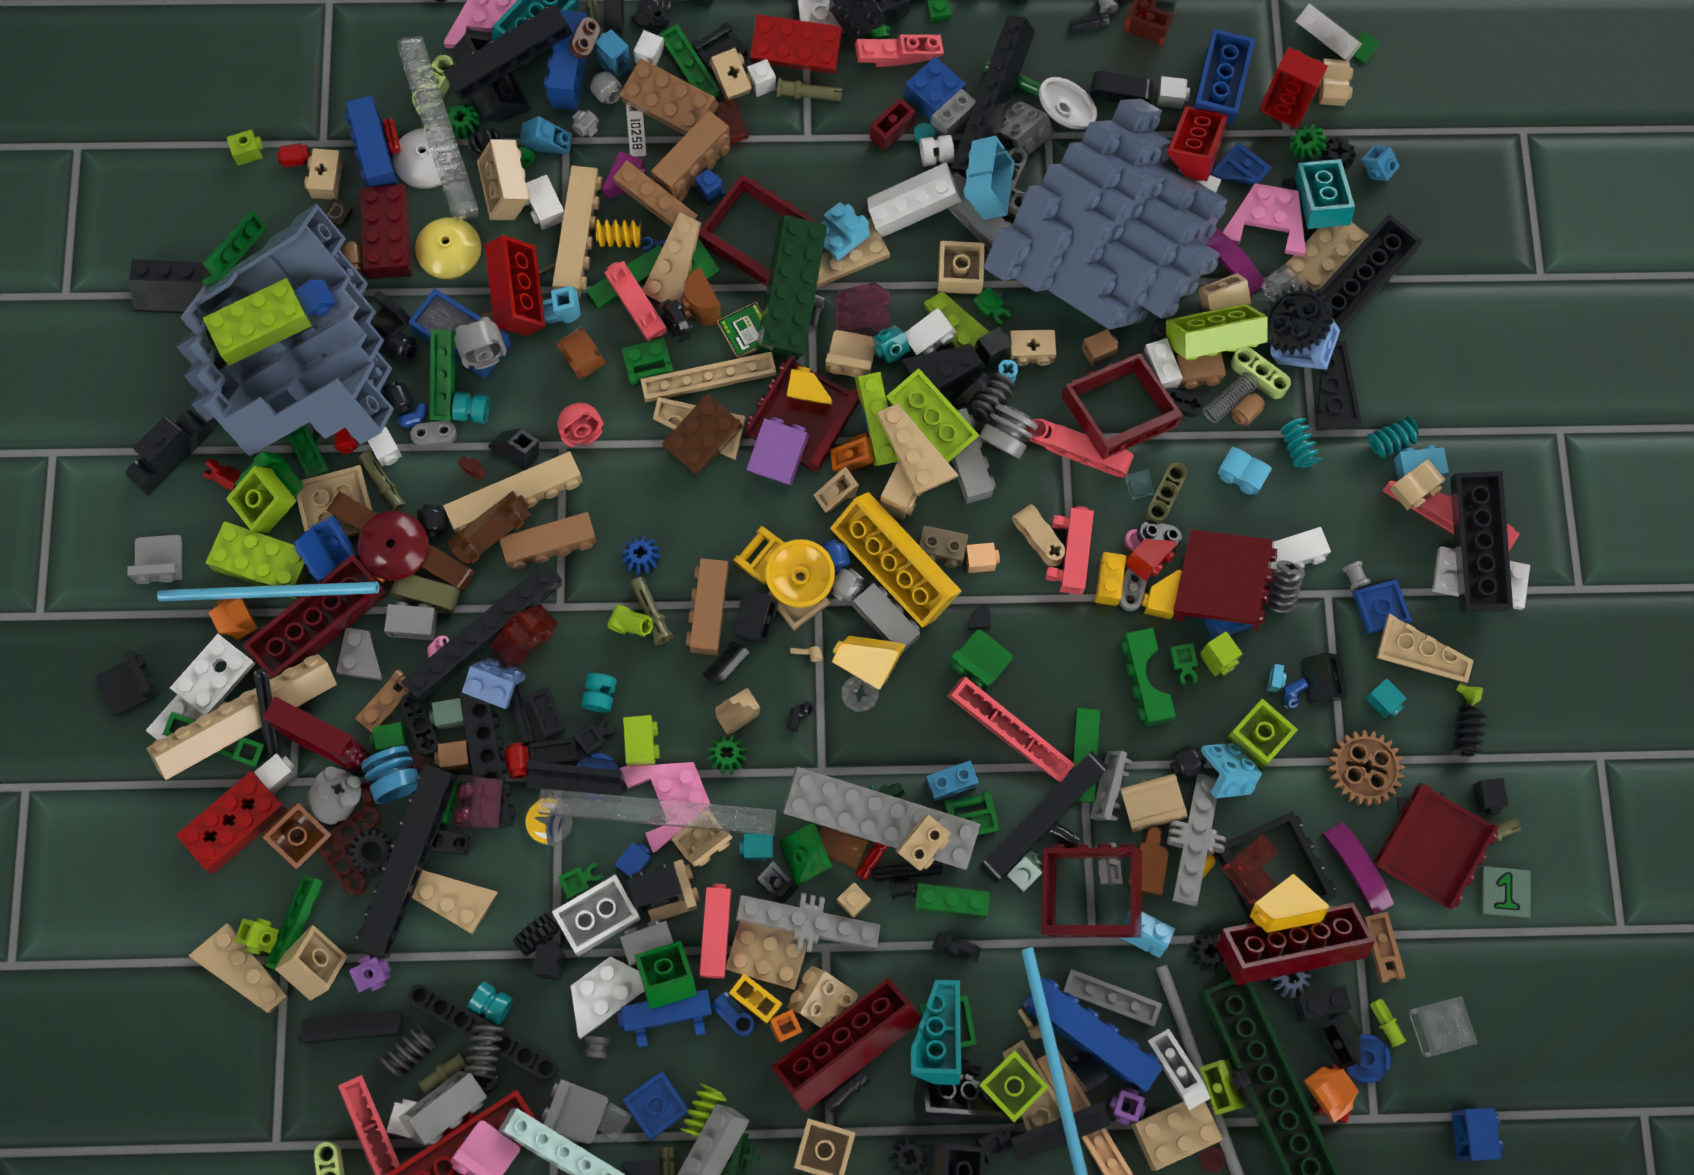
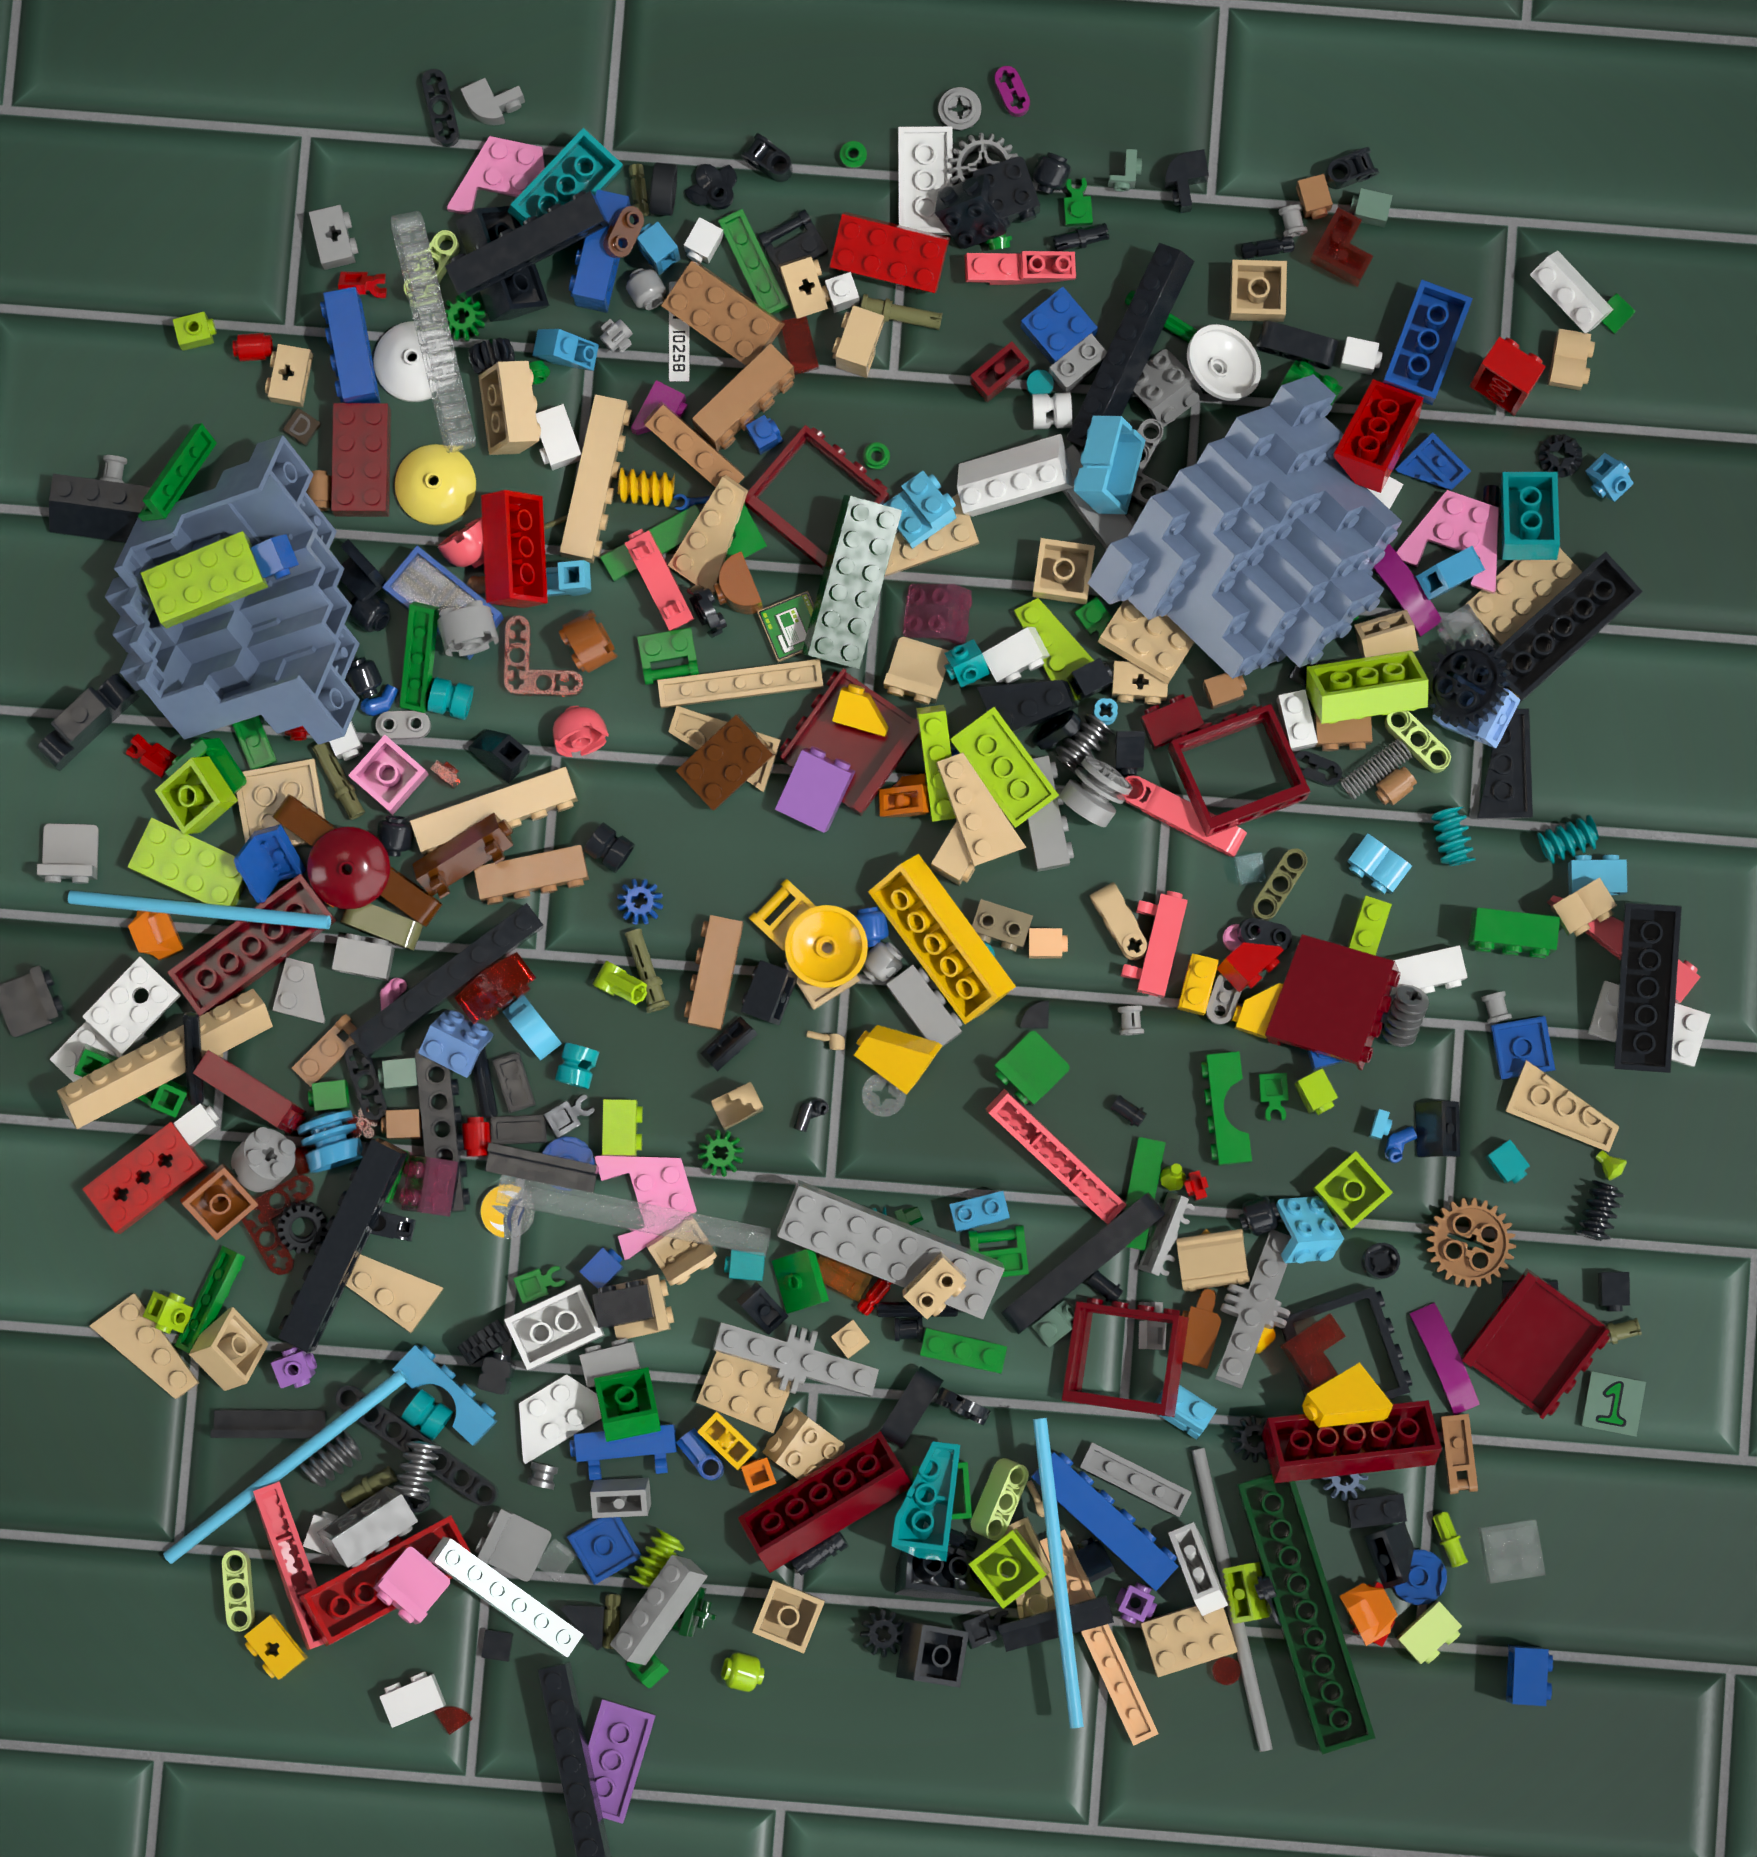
camera: 15 degrees right, 10 degrees up
(184, 252) = (113, 468): none -> light grey bush
(353, 70) = (324, 224): none -> light grey brick
(366, 1061) = (286, 1465): none -> medium azure piece
(384, 101) = (363, 283): none -> red plate
(391, 136) = (374, 331): red axle -> none
(423, 471) = (388, 774): none -> bright pink brick
(474, 289) = (465, 546): none -> coral cylinder
(529, 1003) = (471, 1418): none -> dark azure arch
(535, 386) = (529, 676): none -> clear red beam
(558, 665) = (532, 1027): none -> medium azure brick
(608, 511) = (607, 846): none -> black wheel
(666, 1059) = (620, 1497): none -> light grey brick
(715, 932) = (688, 1360): coral brick -> none
(778, 109) = (858, 344): none -> tan brick
(801, 191) = (872, 448): none -> green plate
(819, 303) = (884, 599): dark grey hand -> none
(837, 490) = (880, 845): tan slope -> none
(912, 954) = (911, 1406): none -> black beam
(944, 25) = (1081, 237): none -> black pin
(997, 1026) = (999, 1499): none -> yellowish green beam
(1031, 397) = (1129, 752): none -> black slope
(1035, 311) = (1150, 644): none -> tan plate
(1055, 376) = (1171, 720): none -> dark red brick
(1058, 613) = (1130, 1020): none -> light grey bush
(1066, 687) = (1129, 1111): none -> black pin
(1086, 49) = (1258, 290): none -> tan brick
(1110, 738) = (1173, 1177): none -> lime rock
(1131, 742) = (1196, 1185): none -> red plate
(1244, 515) = (1369, 925): none -> lime brick
(1268, 242) = (1450, 573): none -> dark azure slope
(1294, 790) = (1380, 1261): none -> black wheel
(1305, 137) = (1519, 451): green gear -> none
(1363, 512) = (1513, 932): none -> green brick
(1384, 1106) = (1429, 1633): none -> yellowish green brick

